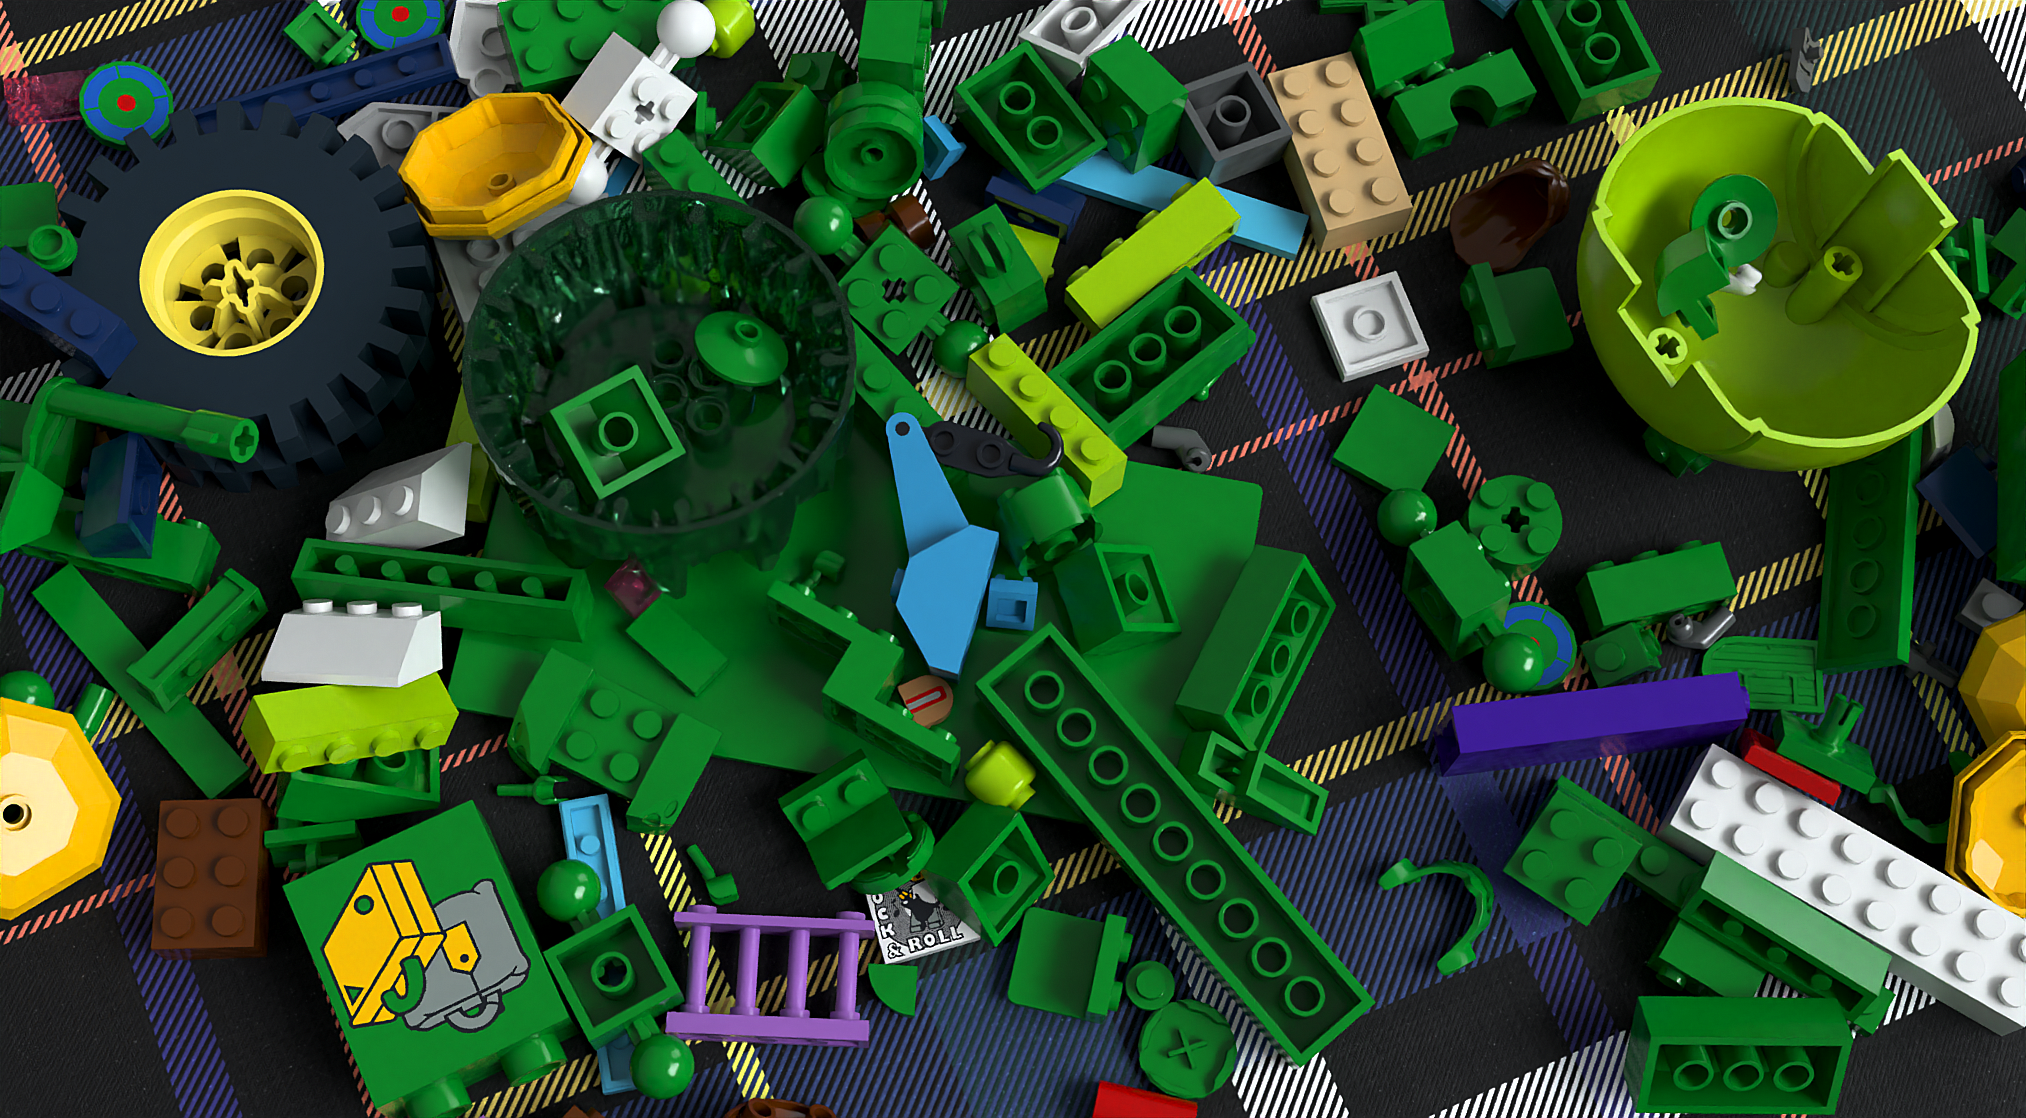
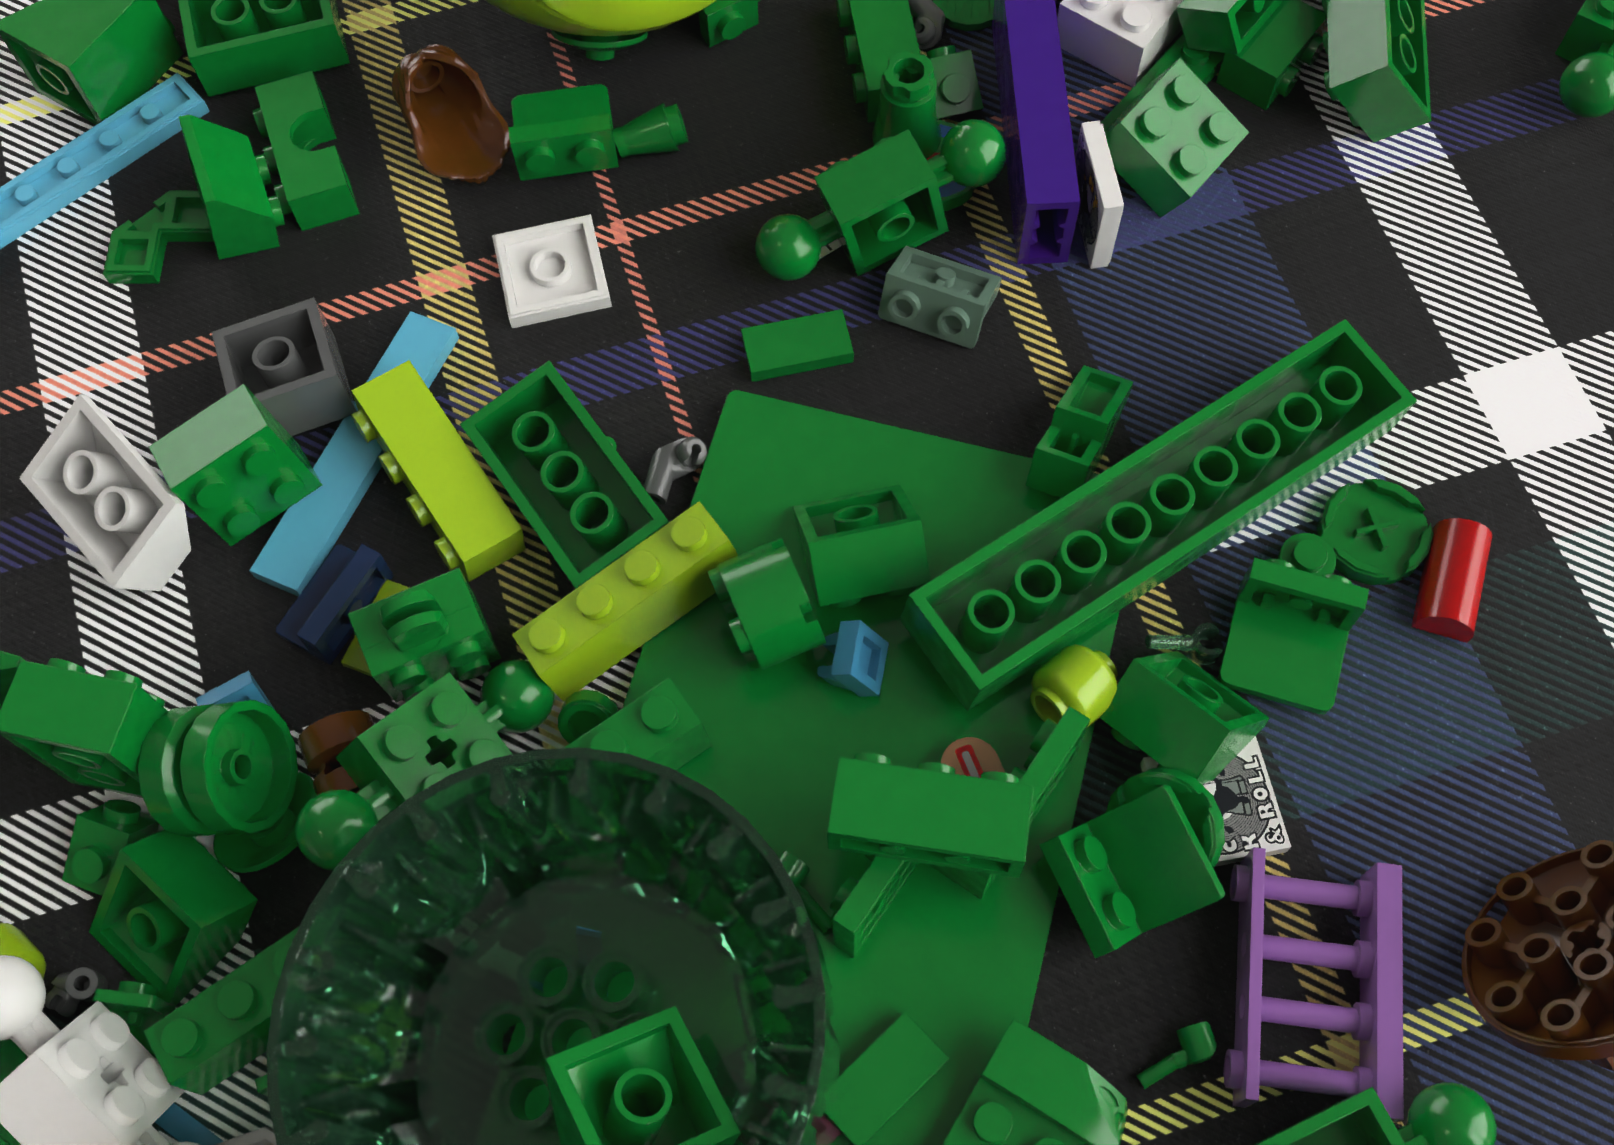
camera: 75 degrees left, 5 degrees down
(712, 80) = (72, 988): none -> dark grey arm
(740, 349) = (515, 934): green dish -> none
(855, 636) = (930, 815): none -> green brick
(895, 987) = (1315, 839): green tile -> none
(948, 558) = (808, 717): dark azure slope -> none
(951, 402) = (583, 712): none -> green tile
(1026, 118) = (228, 590): green slope -> none
(1059, 878) = (1189, 643): none -> clear green hand
(1257, 649) = (928, 407): green slope -> none
(1318, 536) = (797, 345): none -> green tile
(1338, 153) = (357, 262): tan brick -> none
(1383, 656) = (937, 296): none -> sand green bracket
(1392, 443) = (694, 262): green tile -> none
(1475, 882) = (1177, 303): green helmet -> none
(1495, 784) = (1099, 194): none -> white tile
(1519, 506) = (797, 145): green brick -> none
(1526, 394) = (652, 132): none -> green cone
(1561, 610) = (909, 101): none -> green plant

